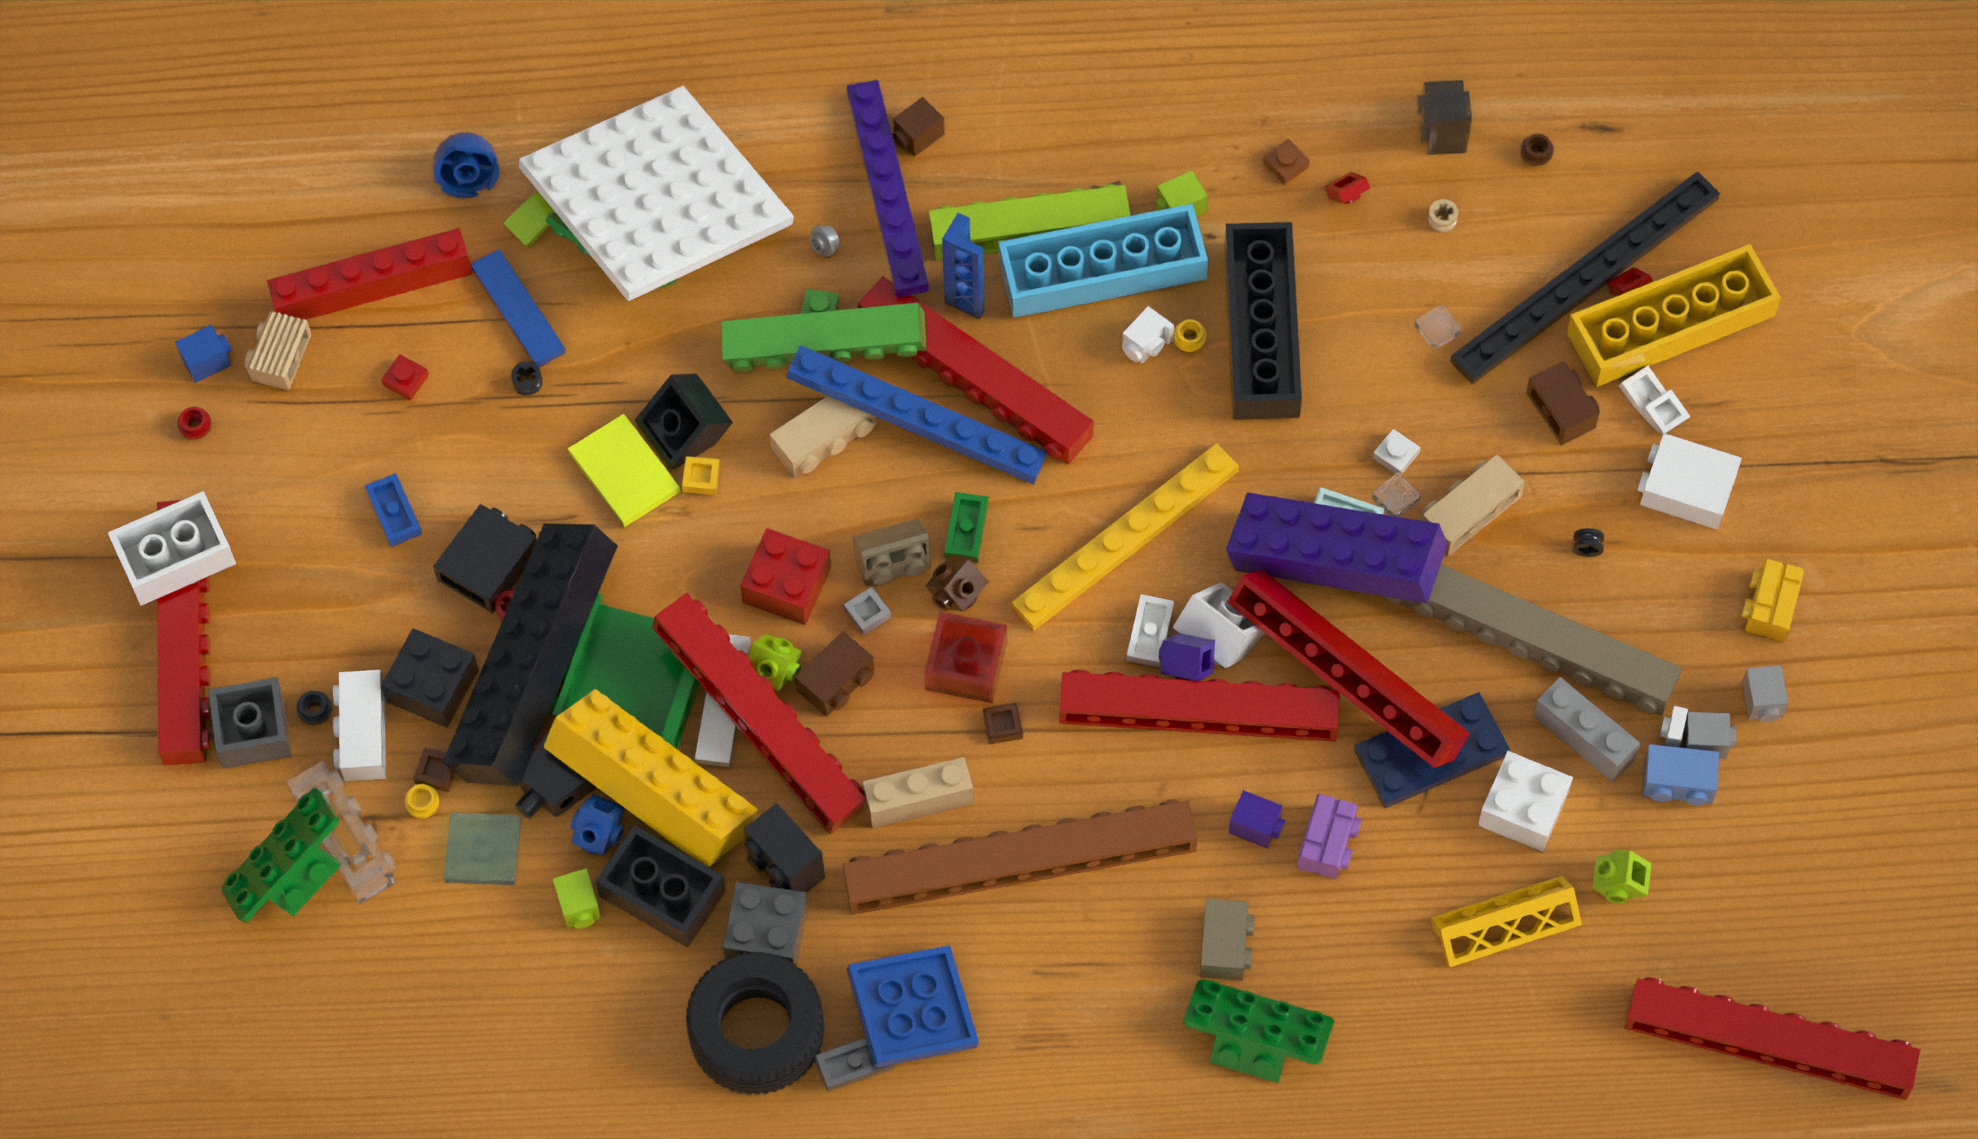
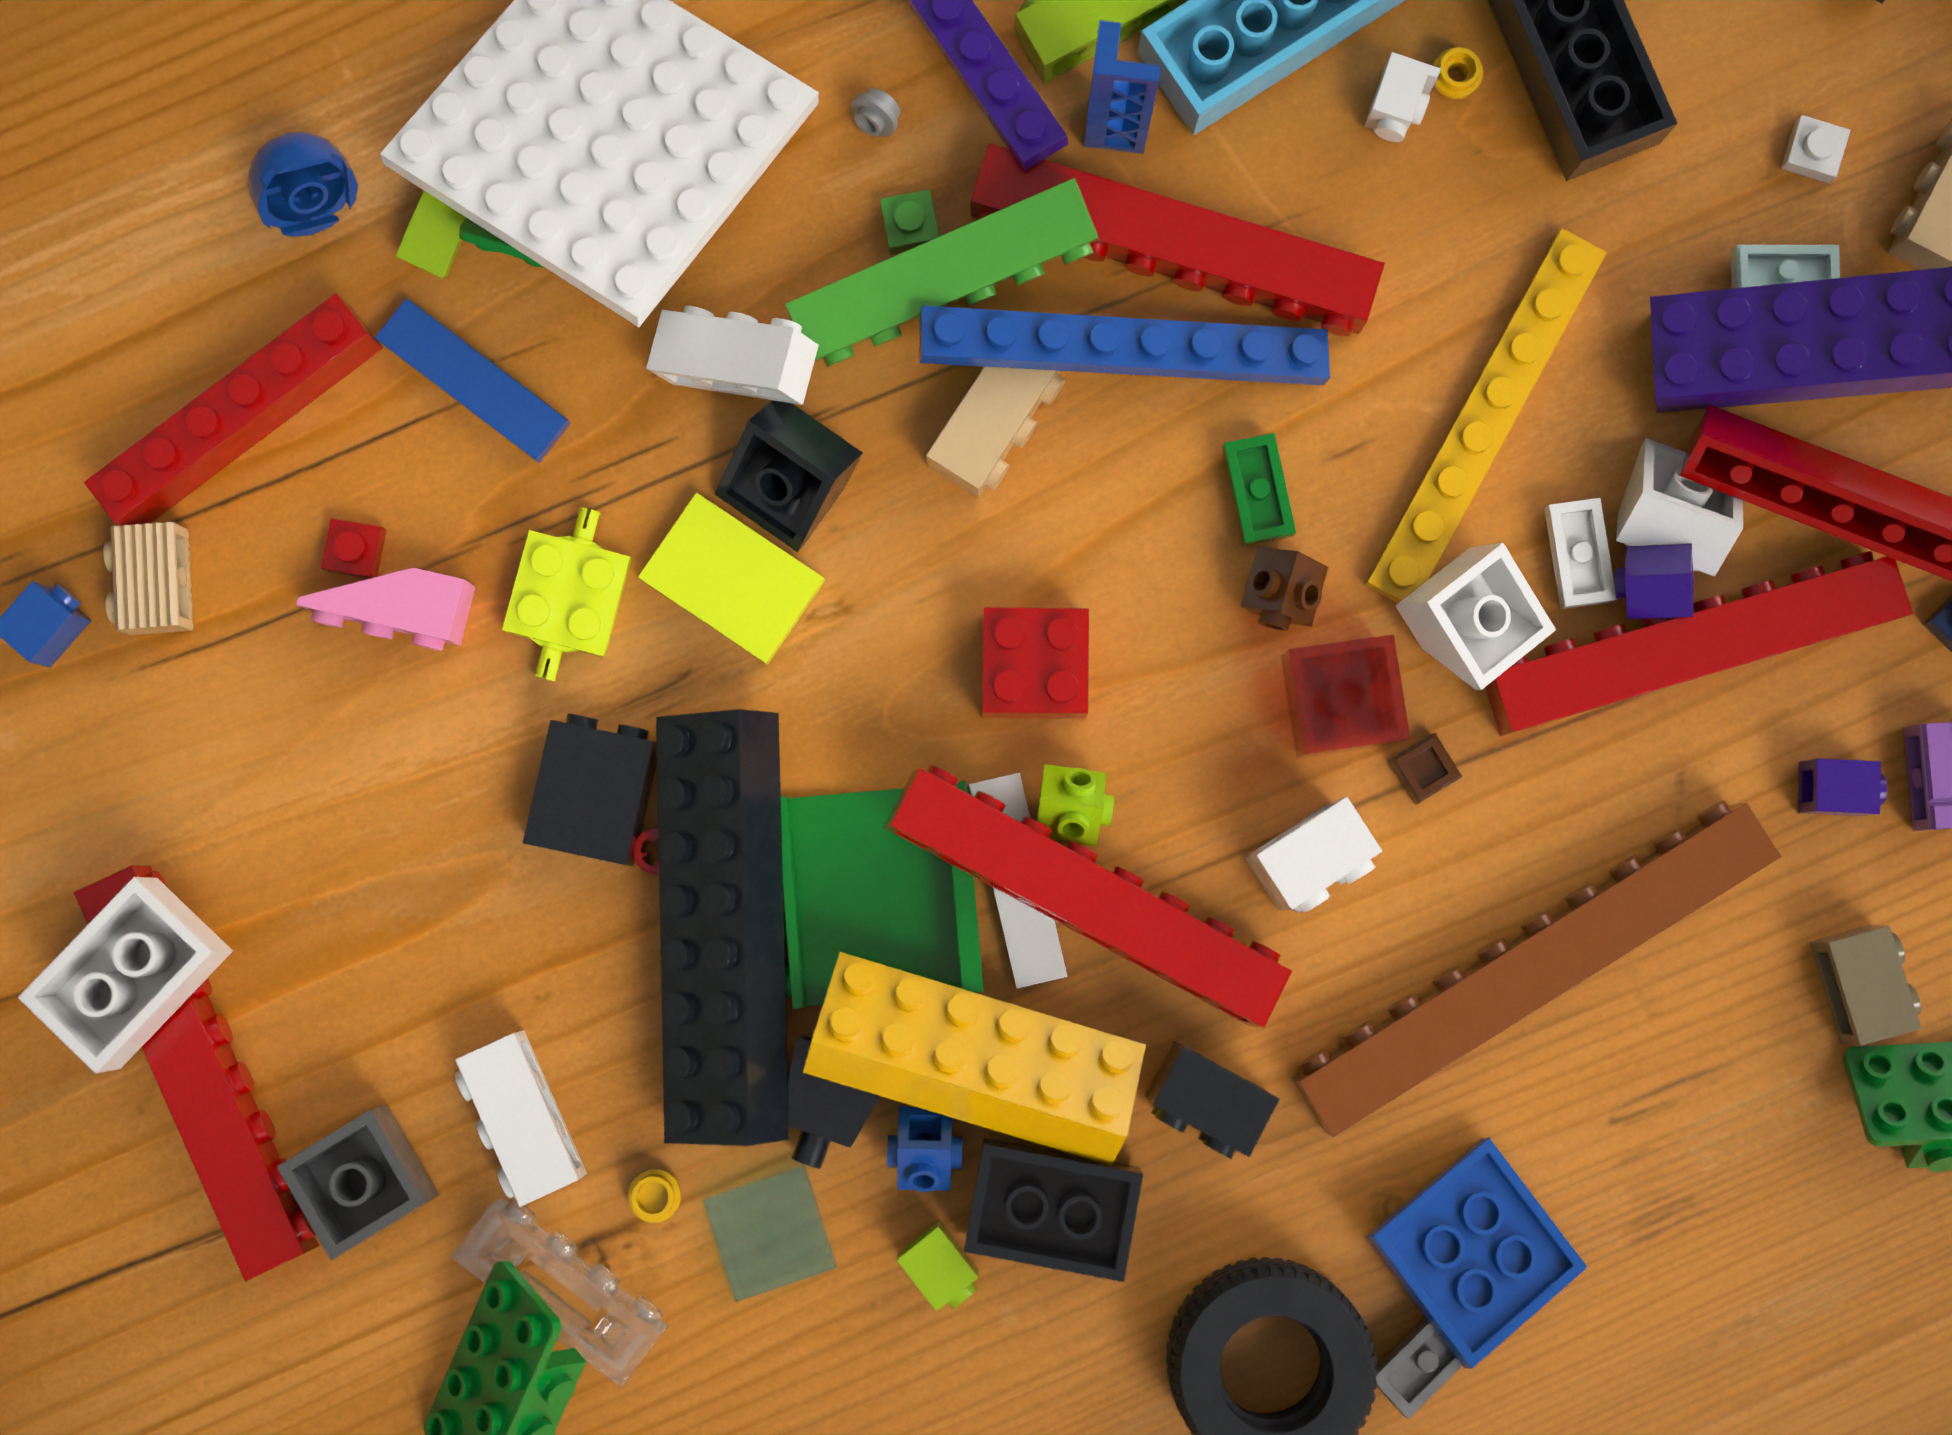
camera: 20 degrees left, 20 degrees up
(191, 415) = (61, 735): red plate -> none
(311, 699) = (424, 1115): black plate -> none
(393, 509) = (424, 766): blue plate -> none
(423, 414) = (405, 601): none -> bright pink slope
(430, 677) = (588, 1011): black brick -> none
(432, 770) = (647, 1146): reddish brown plate -> none
(520, 444) = (566, 594): none -> neon yellow plate
(526, 368) = (525, 472): black bush -> none
(677, 340) = (733, 354): none -> white brick
(701, 475) = (847, 548): yellow plate -> none
(765, 921) = (1223, 1211): dark grey brick -> none
(835, 674) = (1166, 786): reddish brown brick -> none
(867, 611) = (1170, 671): light grey plate -> none
(892, 552) = (1172, 566): dark tan slope -> none
(906, 736) = (1313, 855): none -> white brick
(918, 792) = (1357, 925): tan brick -> none
(1066, 636) = (1477, 615): none -> white slope
(1396, 496) = (1845, 218): clear plate -> none

